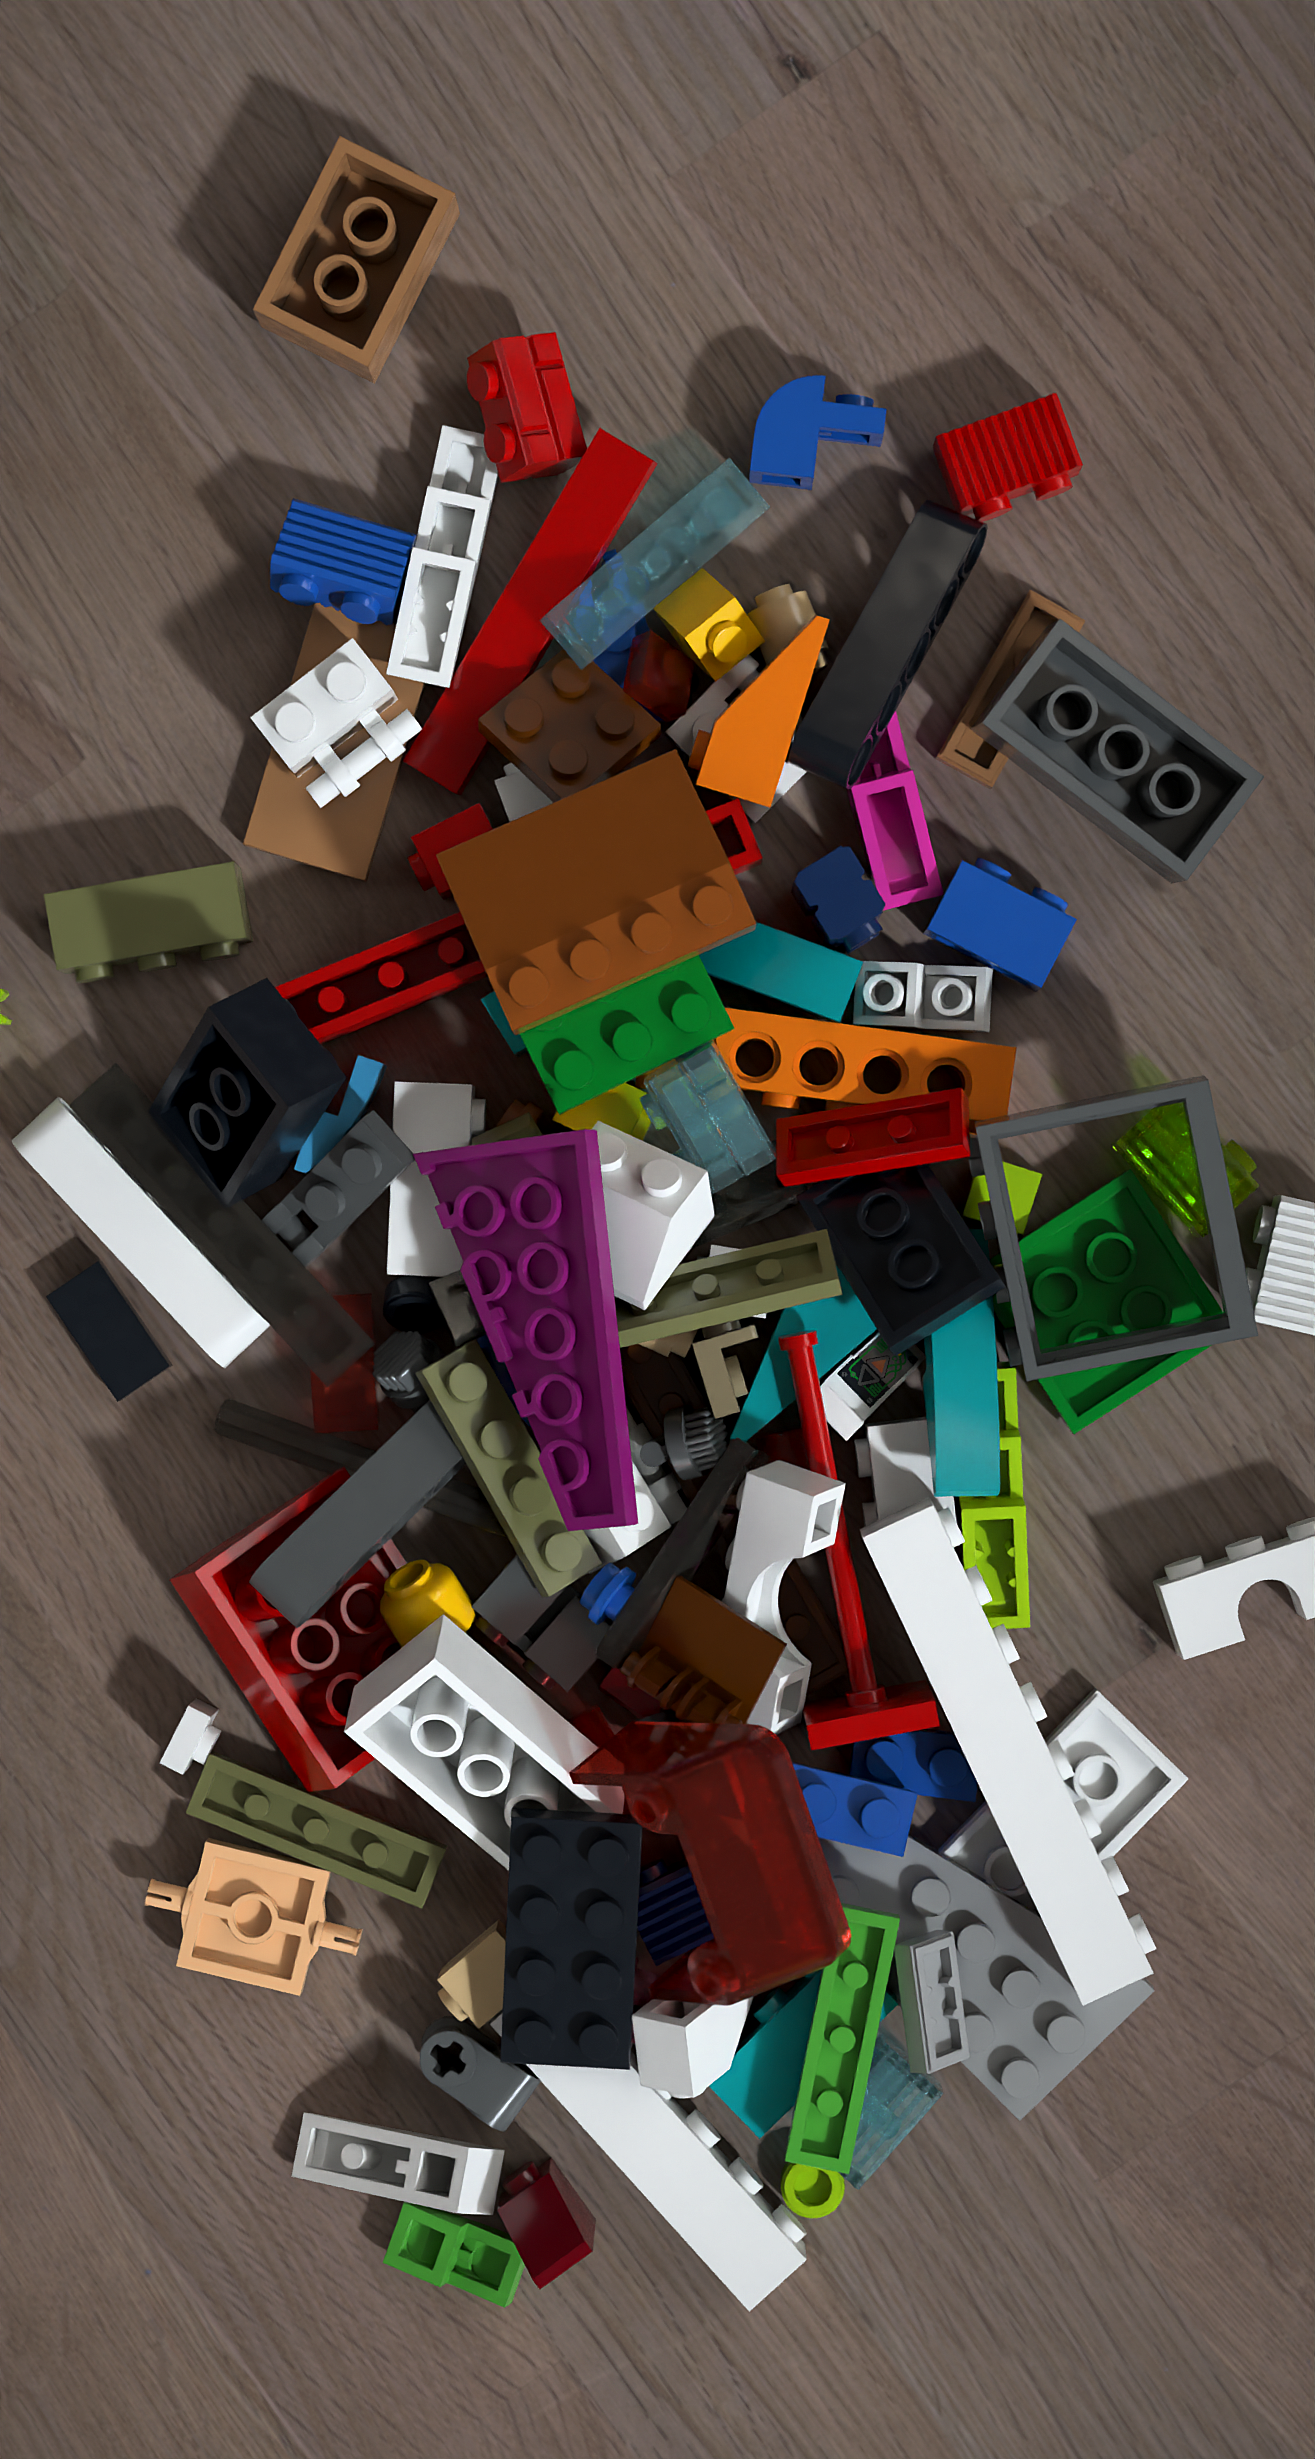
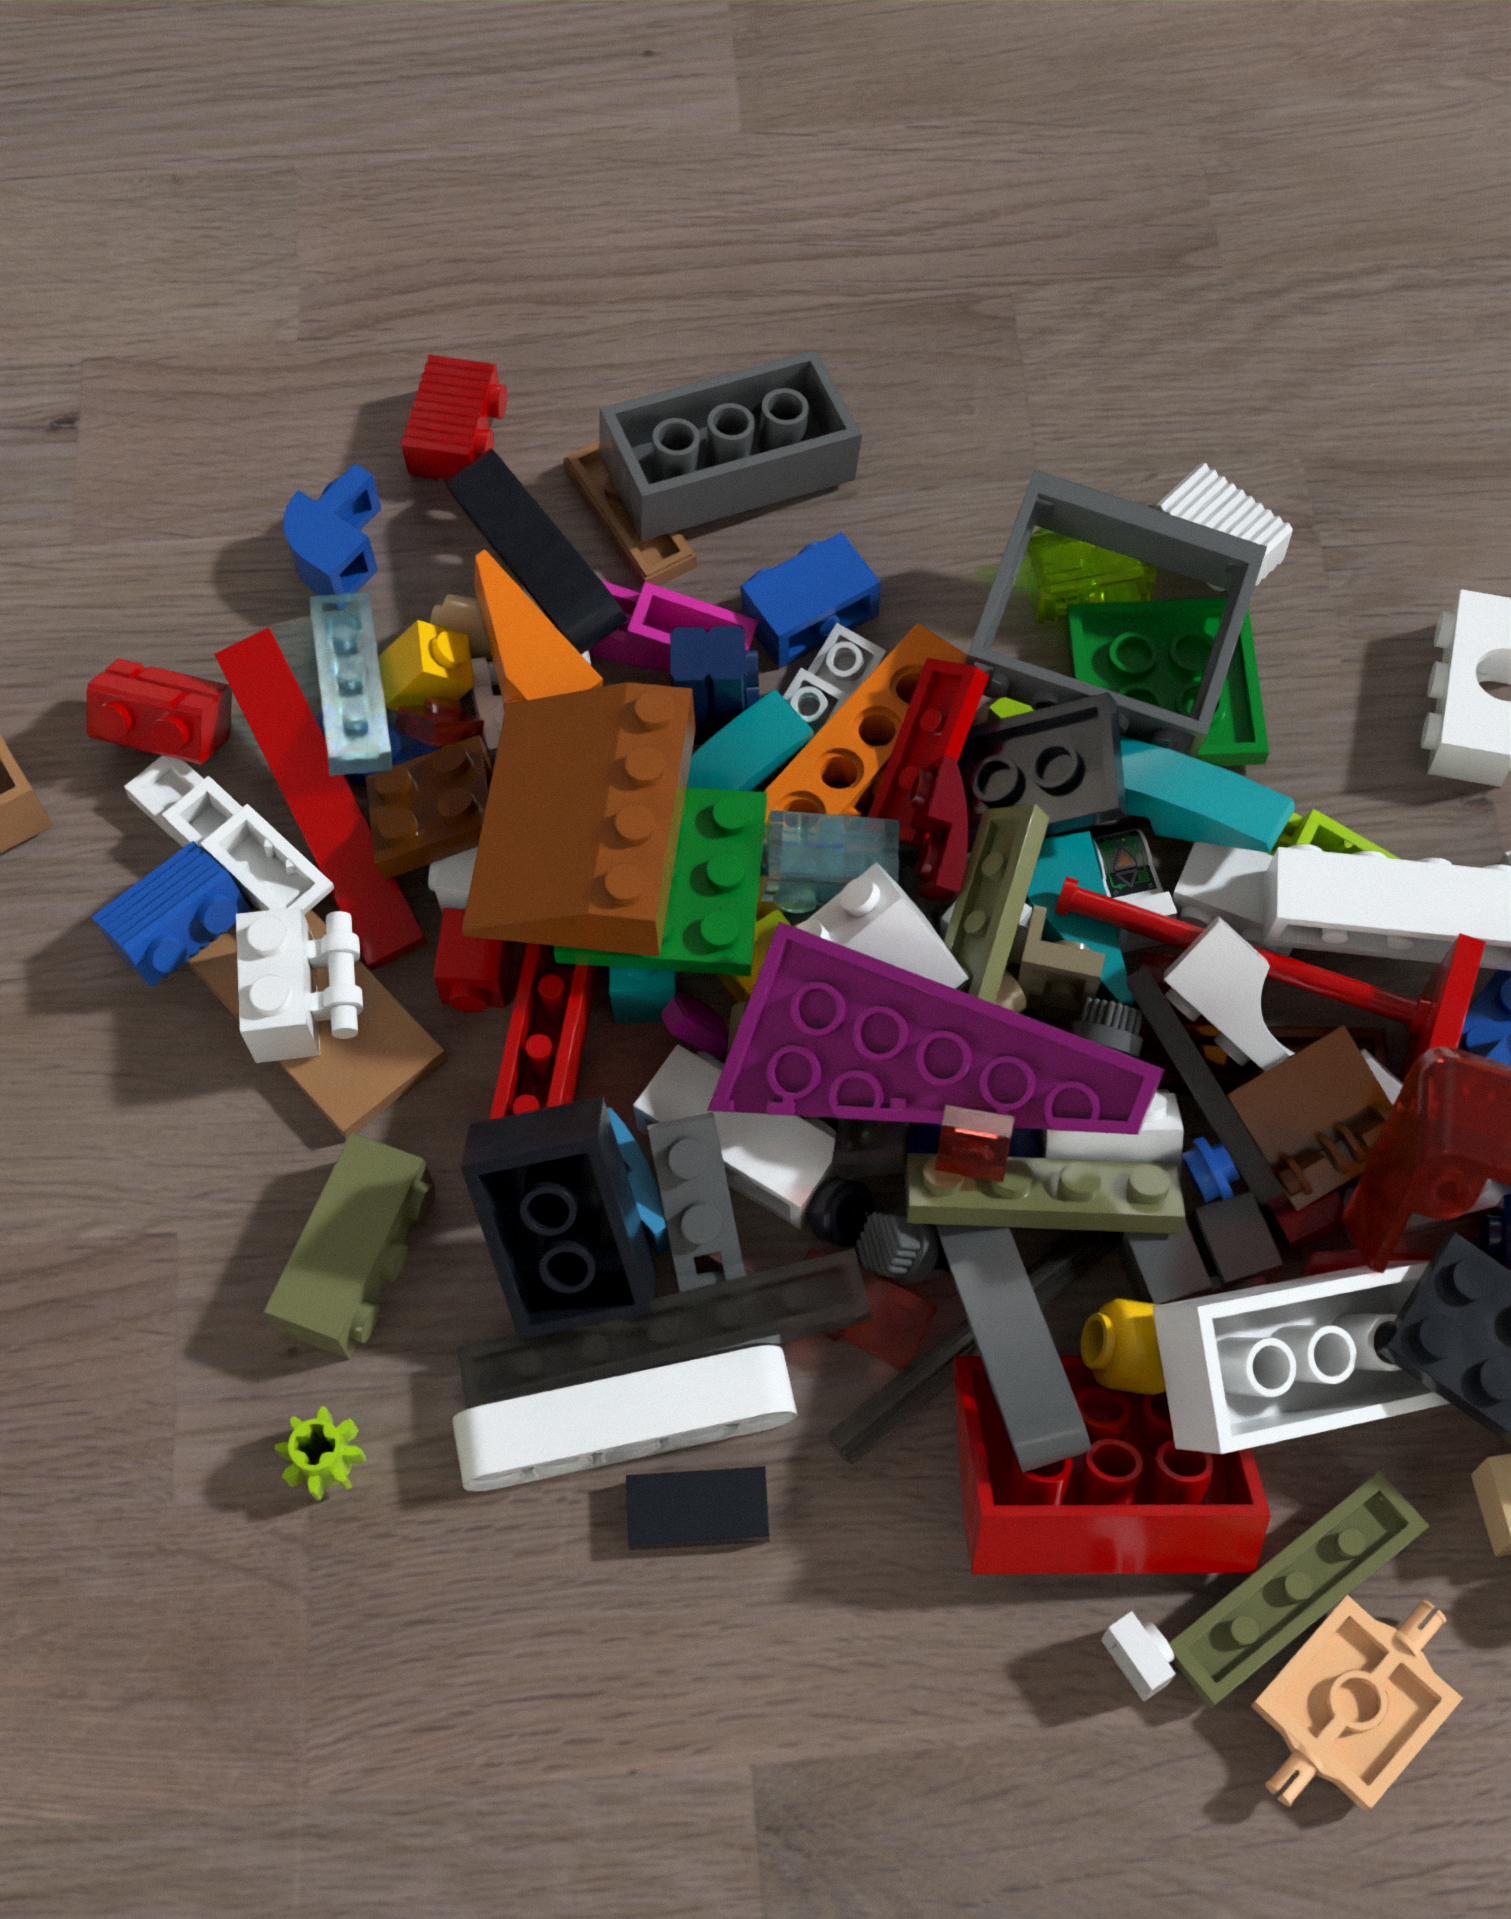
camera: 55 degrees left, 25 degrees down
(493, 1399) = (974, 1143): none -> clear red plate
(499, 1088) = (696, 1024): none -> magenta tile
(801, 1192) = (941, 812): none -> dark red slope

